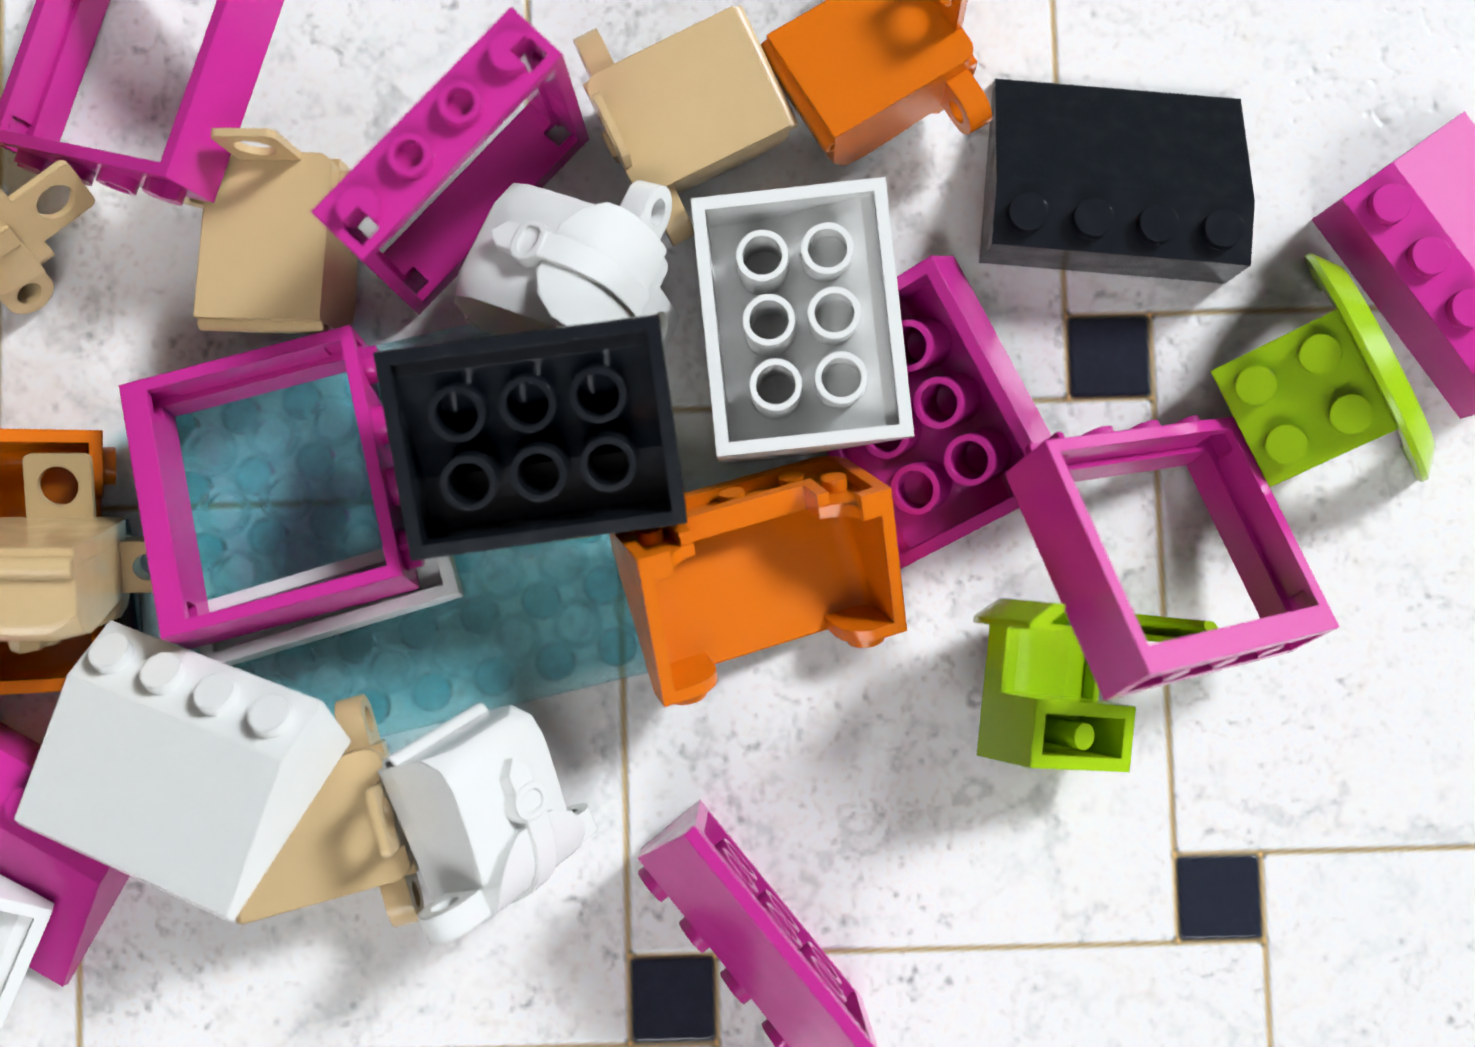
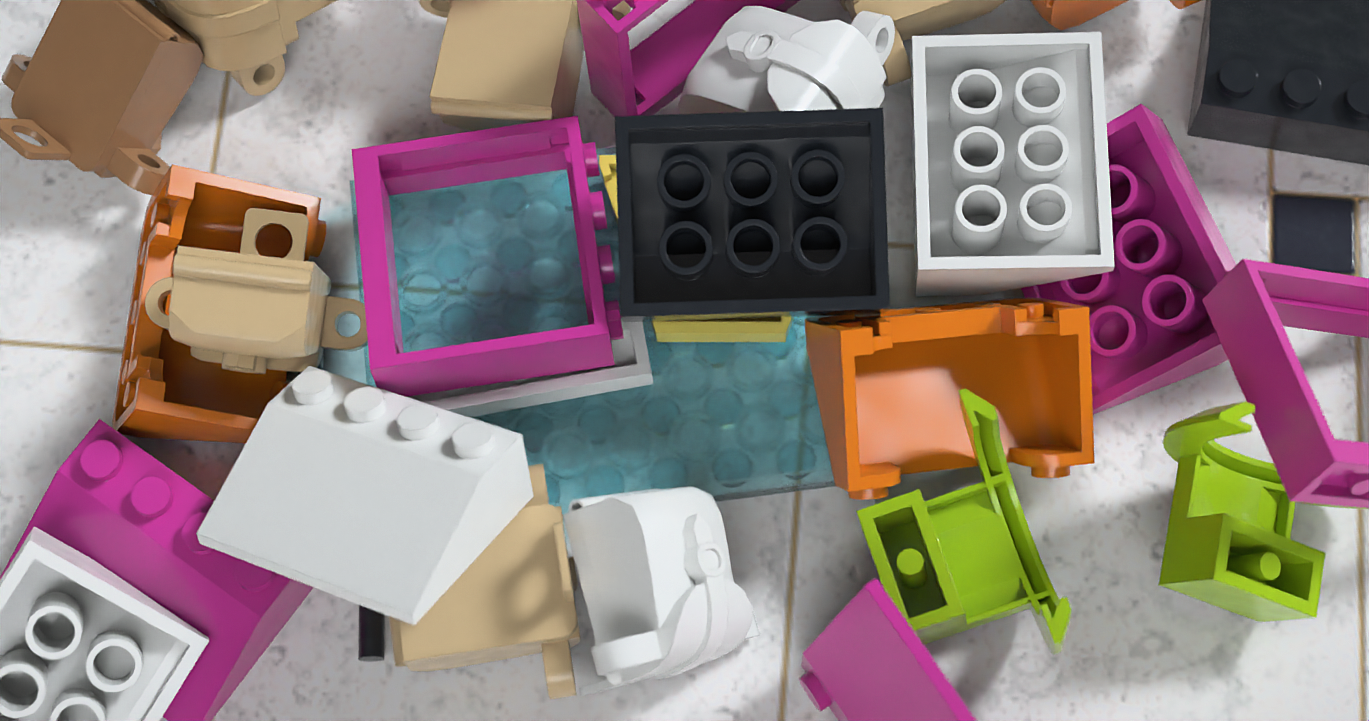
camera: 10 degrees right, 15 degrees down
(786, 741) = (964, 552): none -> lime piece

